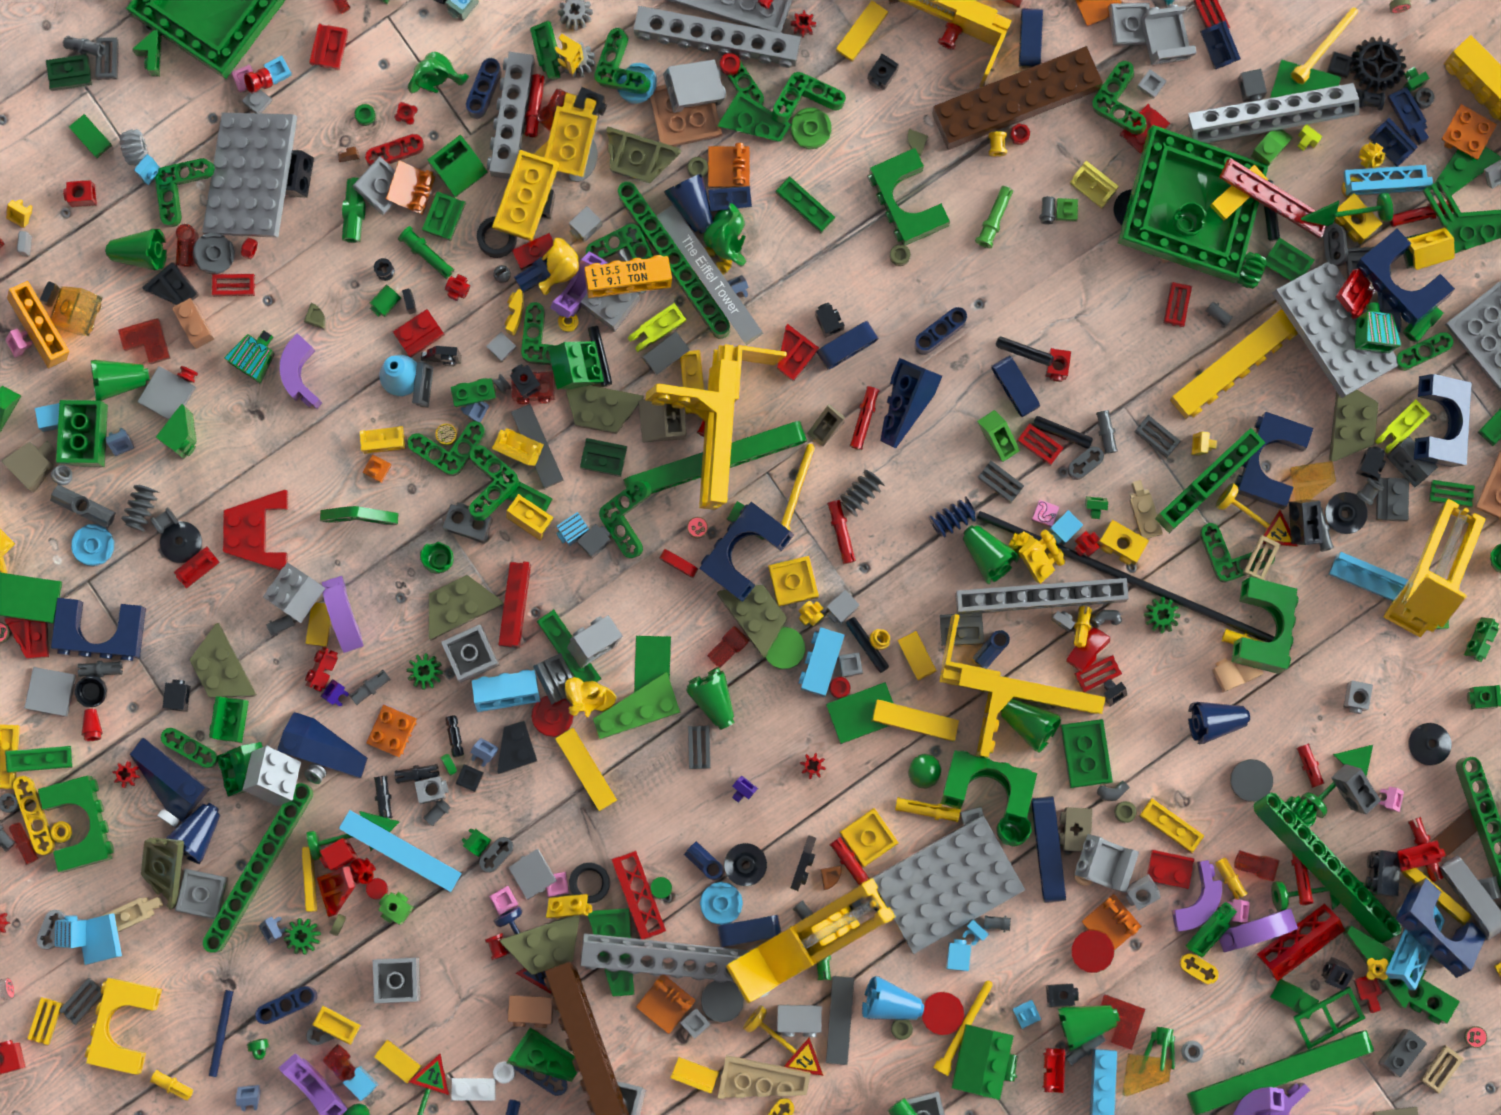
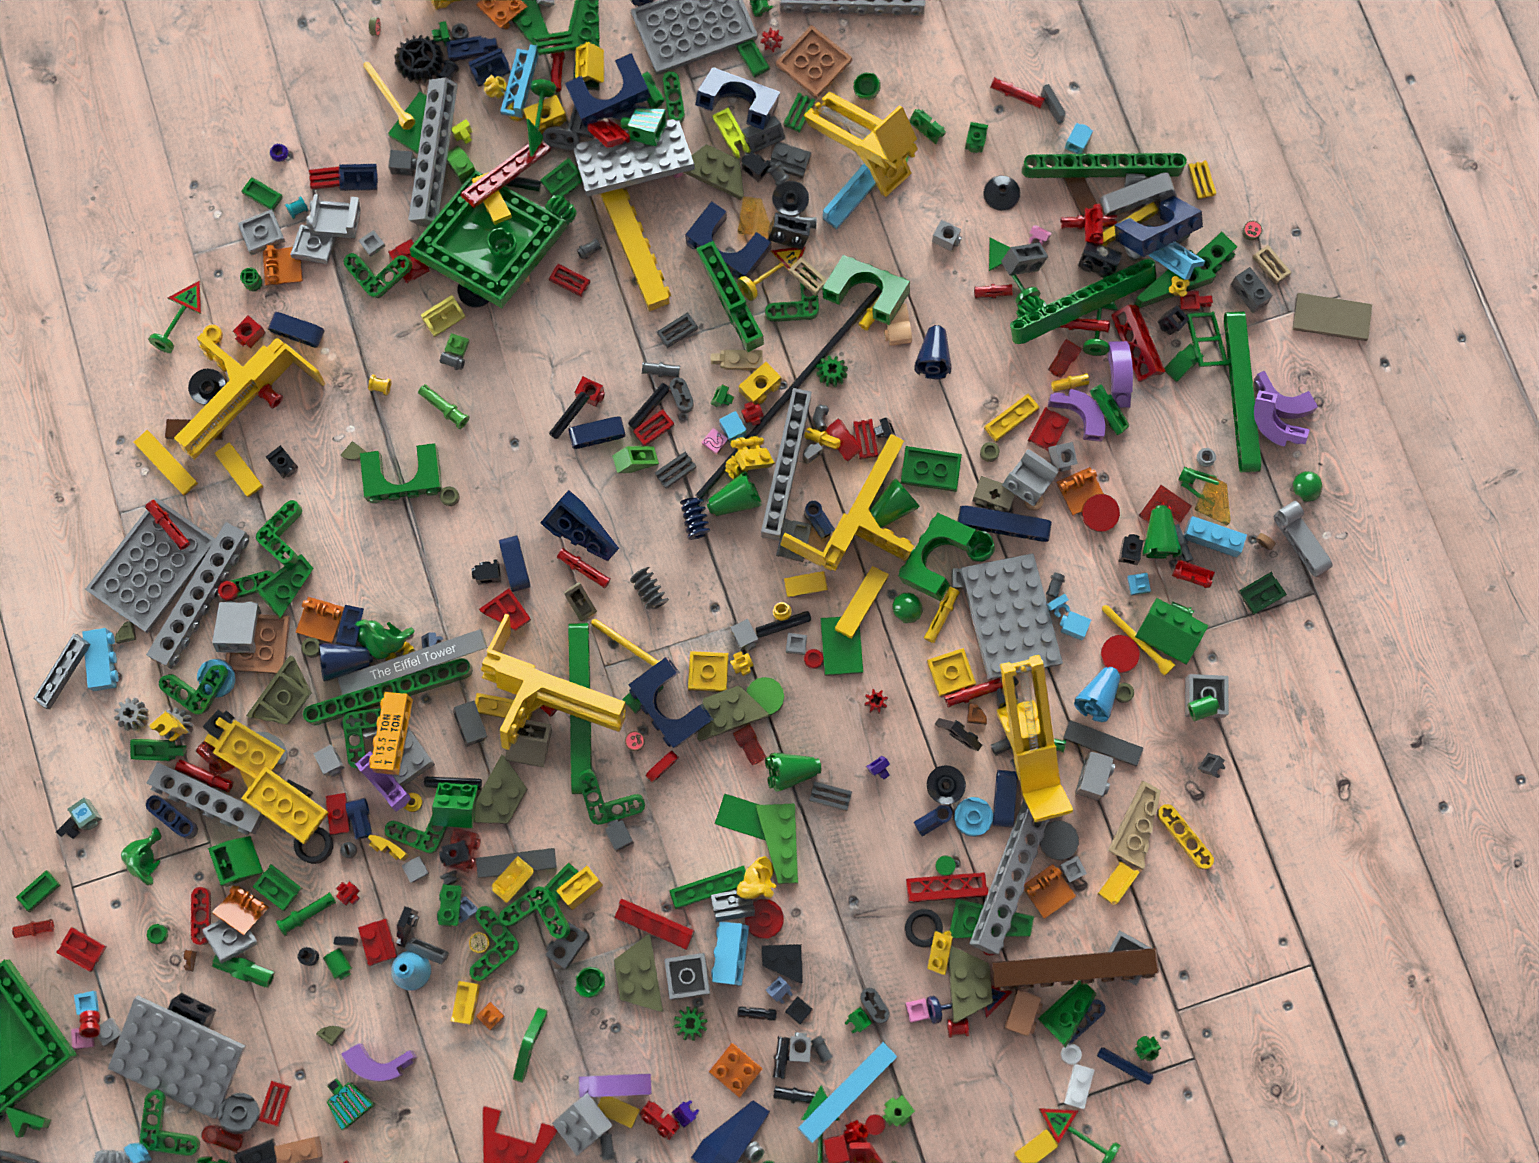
camera: 75 degrees left, 5 degrees down
(249, 248) = (245, 1078): red tile -> none
(369, 687) = (689, 1079): dark grey pin -> none
(396, 980) = (964, 1128): light grey brick -> none
(402, 108) = (163, 896): red plate -> none
(448, 763) = (781, 1025): green tile -> none
(532, 874) = (901, 977): light grey piece -> none
(559, 887) = (916, 958): bright pink tile -> none
(561, 264) = (359, 791): yellow piece -> none
(572, 529) = (602, 852): medium azure brick -> none
(586, 769) = (821, 902): yellow tile -> none
(594, 641) = (709, 859): light grey brick -> none
(603, 457) = (546, 805): dark green plate -> none
(658, 326) = (443, 722): neon yellow hinge -> none
(802, 1059) = (1128, 785): yellow piece -> none
(803, 30) = (209, 516): red gear -> none
(805, 204) = (377, 563): green tile -> none
(811, 128) = (310, 539): bright green tile -> none
(821, 661) = (787, 667): medium azure brick -> none
(842, 535) = (677, 617): red pin -> none
(946, 322) = (523, 473): dark blue beam -> none
(1017, 97) = (345, 356): reddish brown brick -> none
(1020, 134) = (377, 364): red tile -> none
(1112, 794) = (971, 458): dark grey arm -> none
(1196, 972) = (1141, 434): yellow beam -> none
(1202, 444) = (695, 295): yellow tile -> none
(1242, 909) = (1097, 380): bright pink tile -> none
(1251, 780) = (992, 341): dark grey tile -> none
(1339, 65) = (408, 89): black tile -> none

